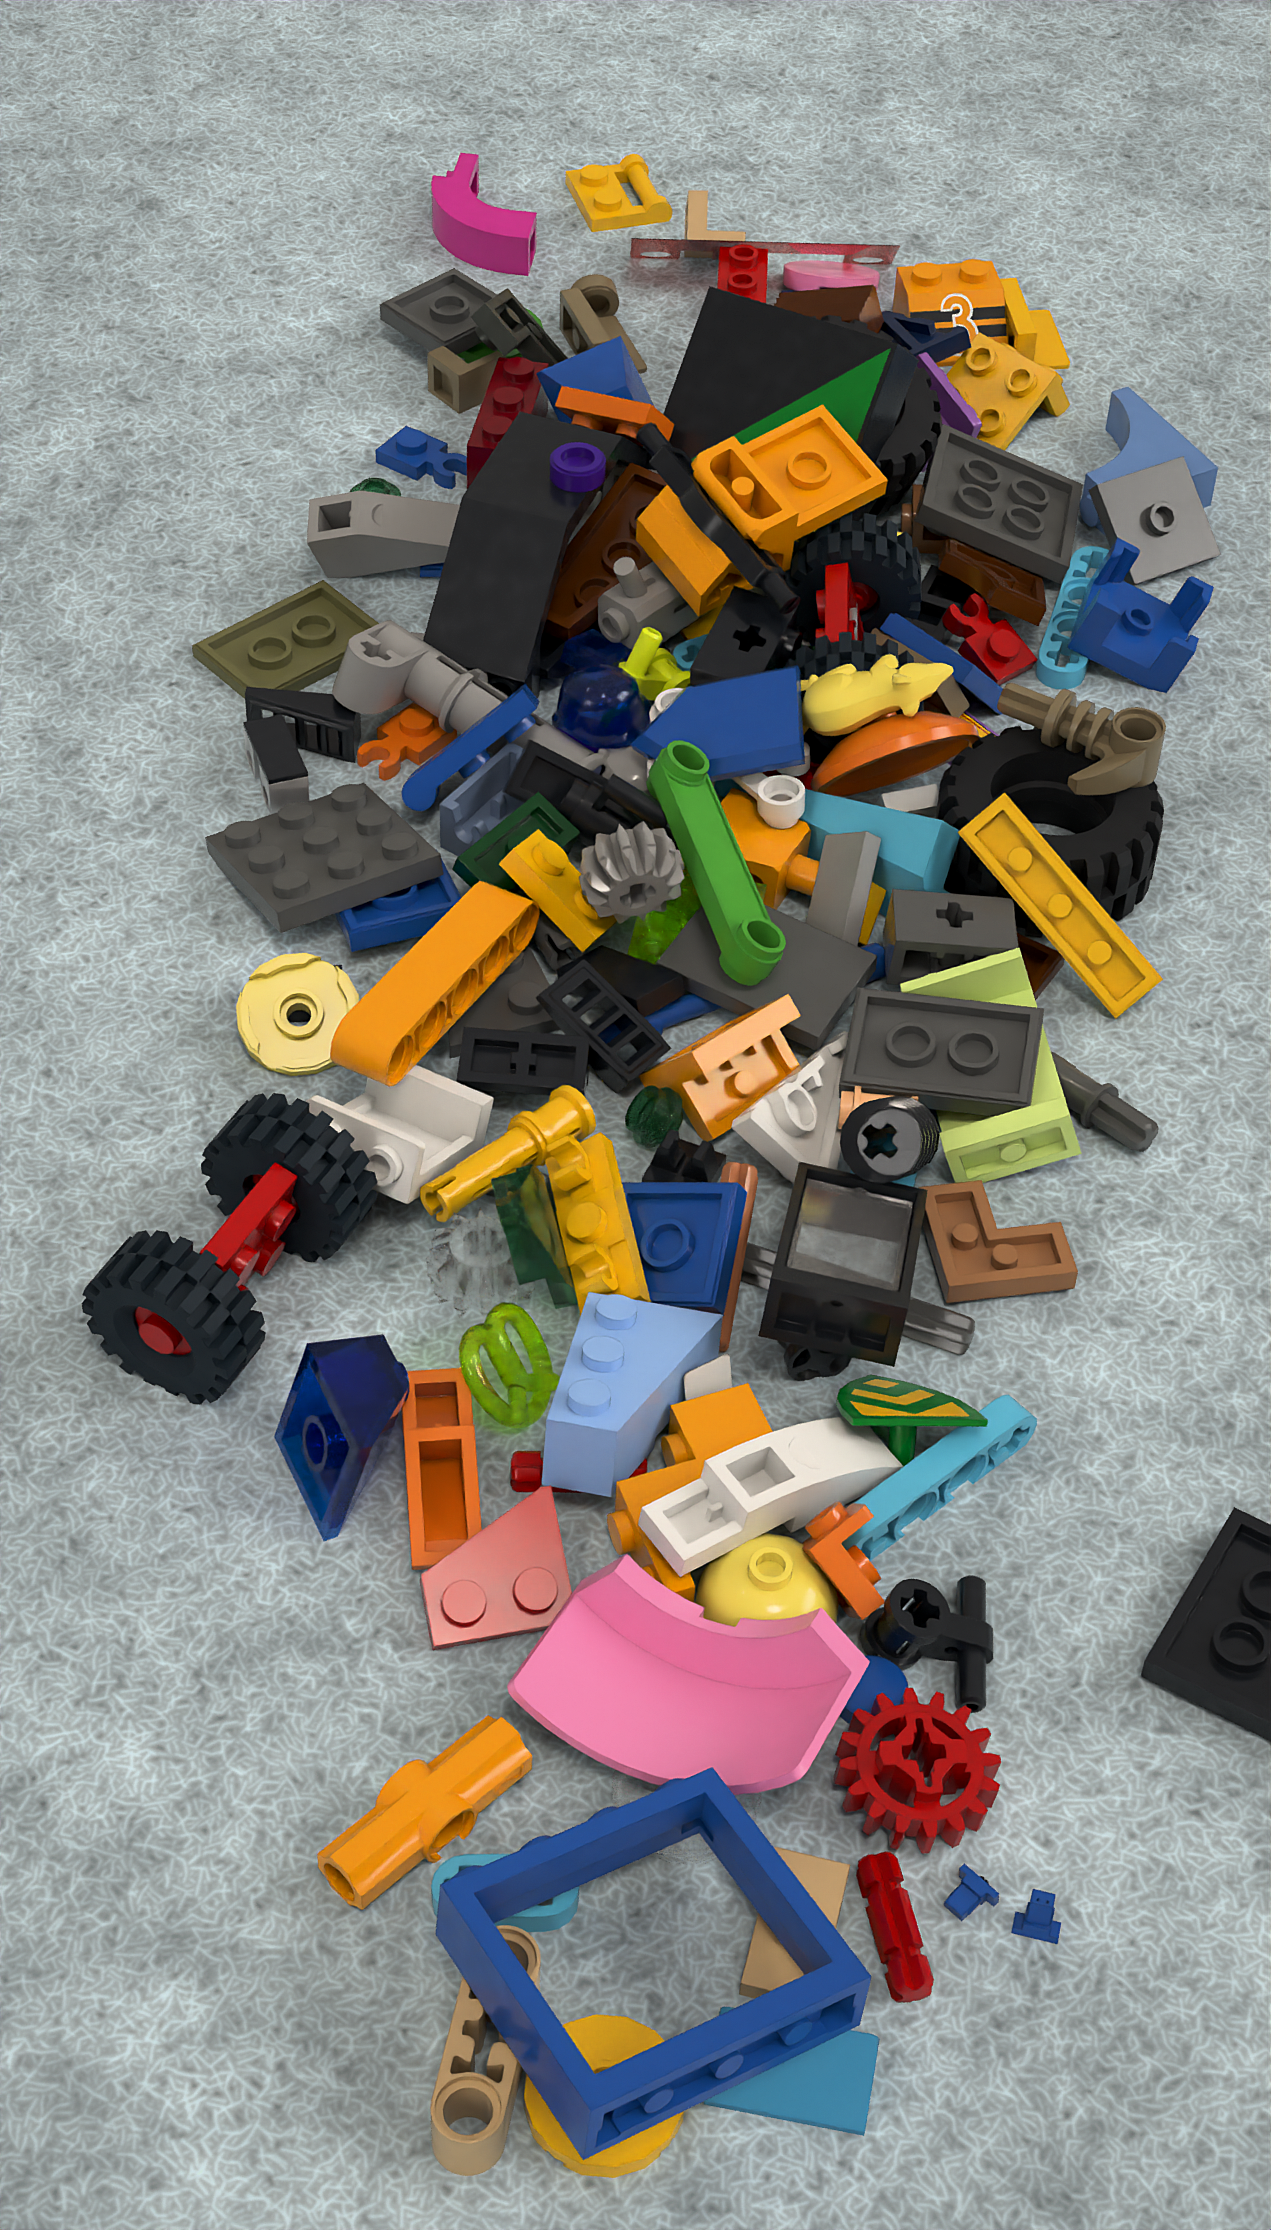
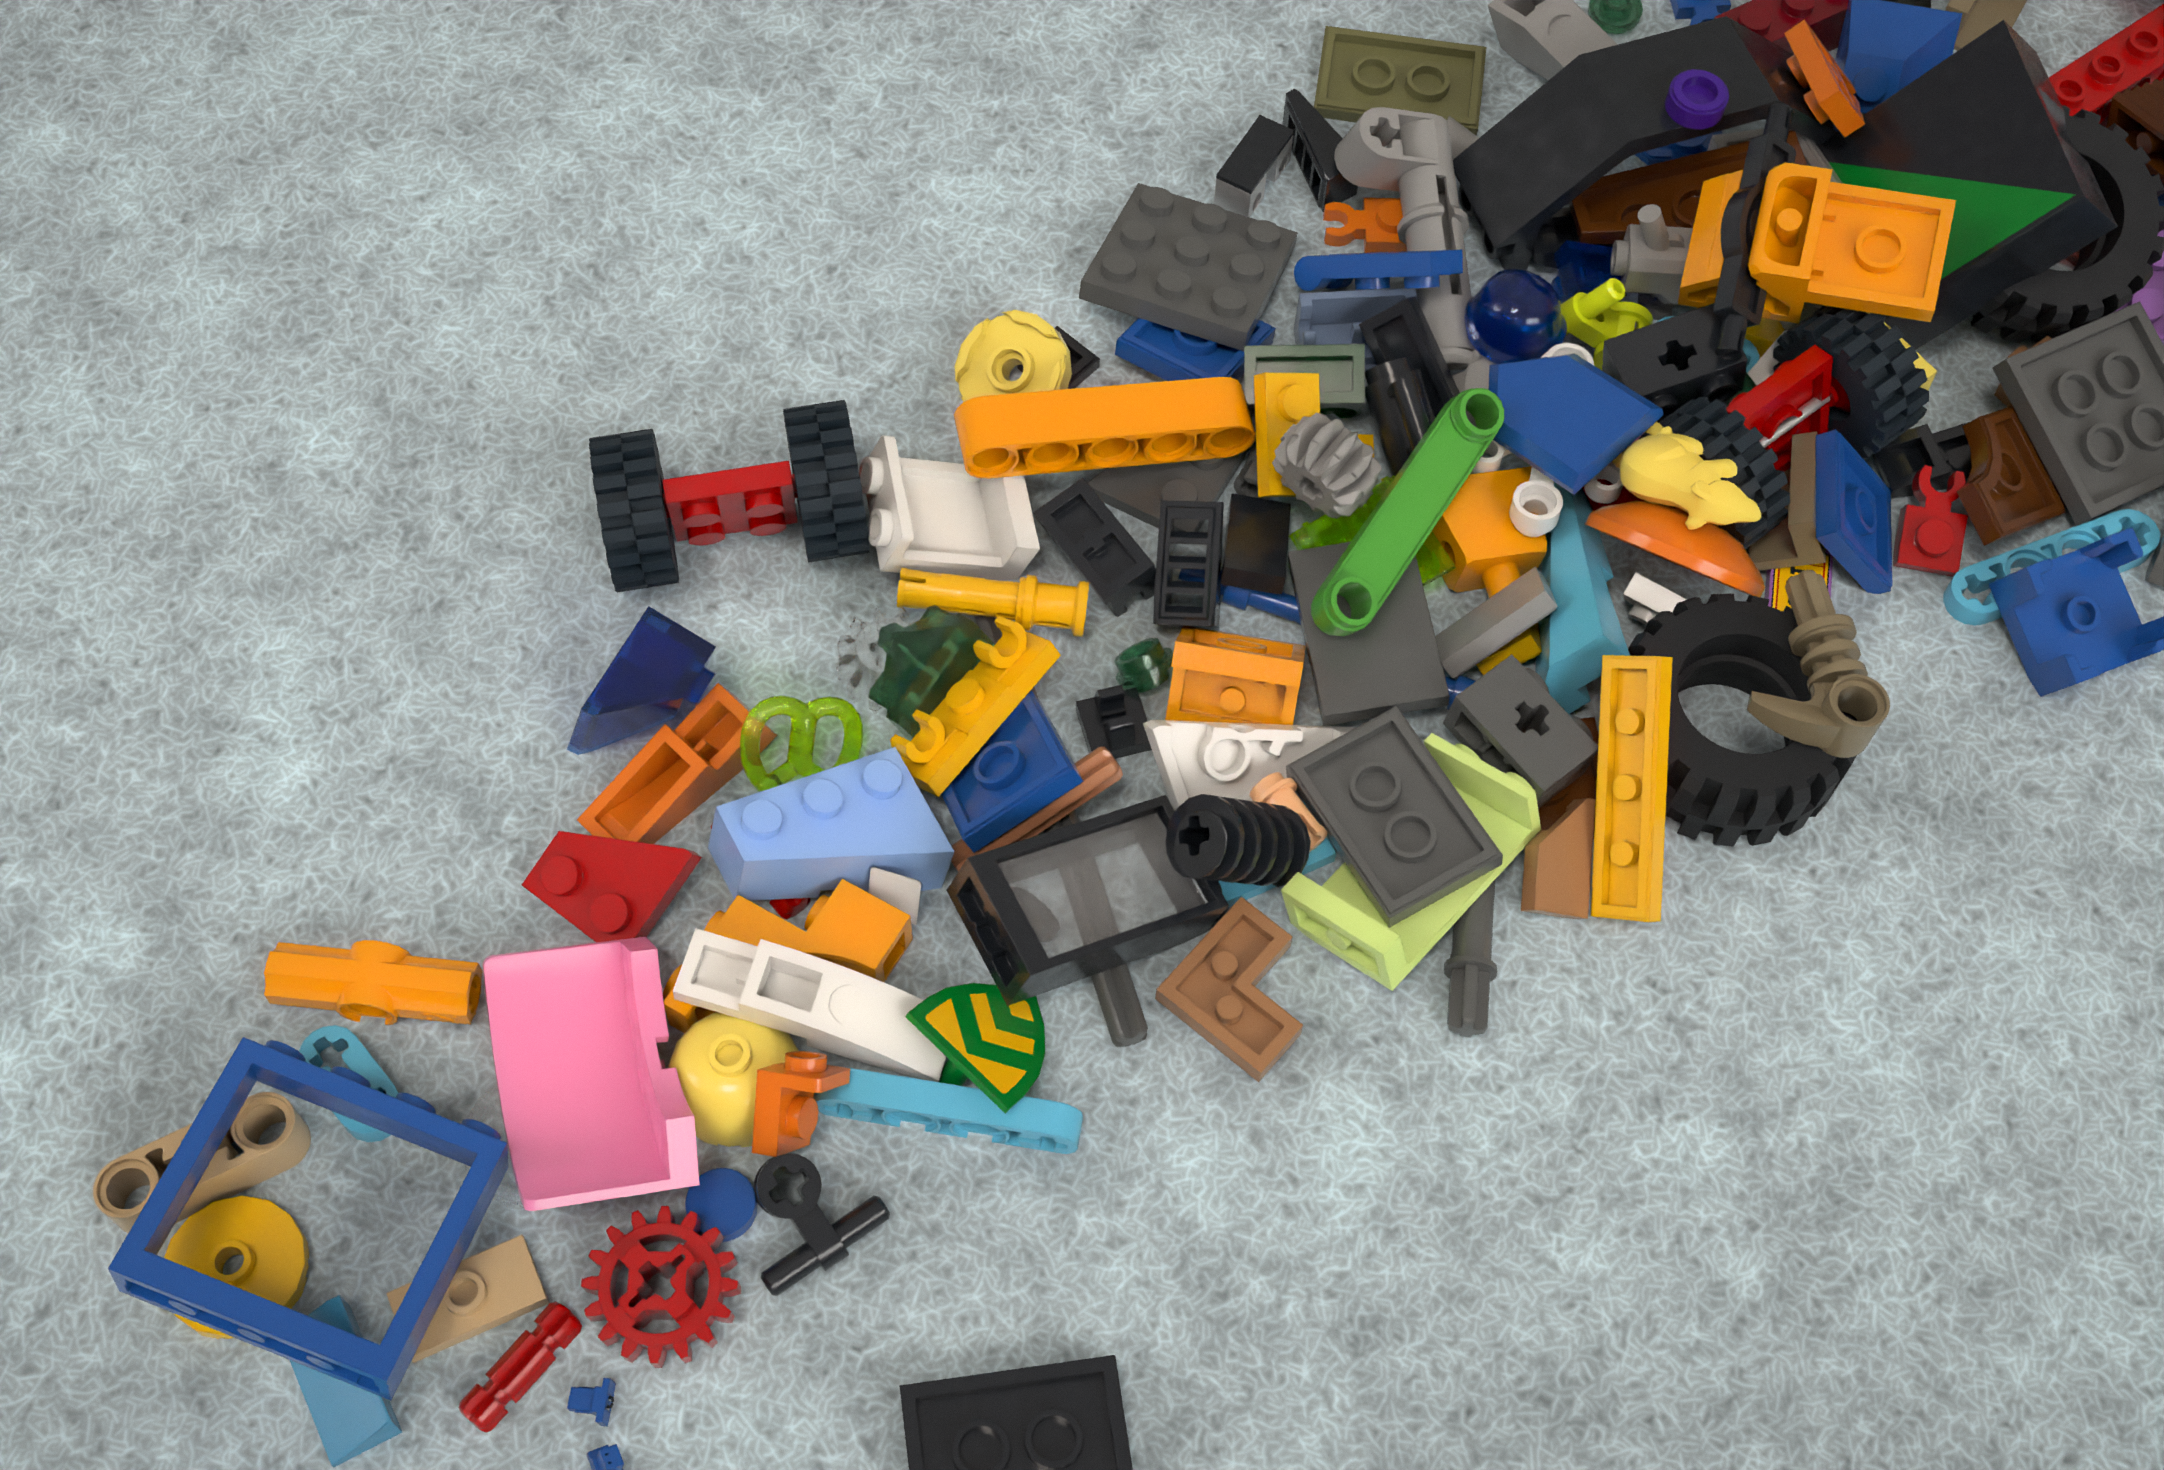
camera: 50 degrees right, 15 degrees up
(1066, 998) = (1560, 865): none -> medium nougat tile

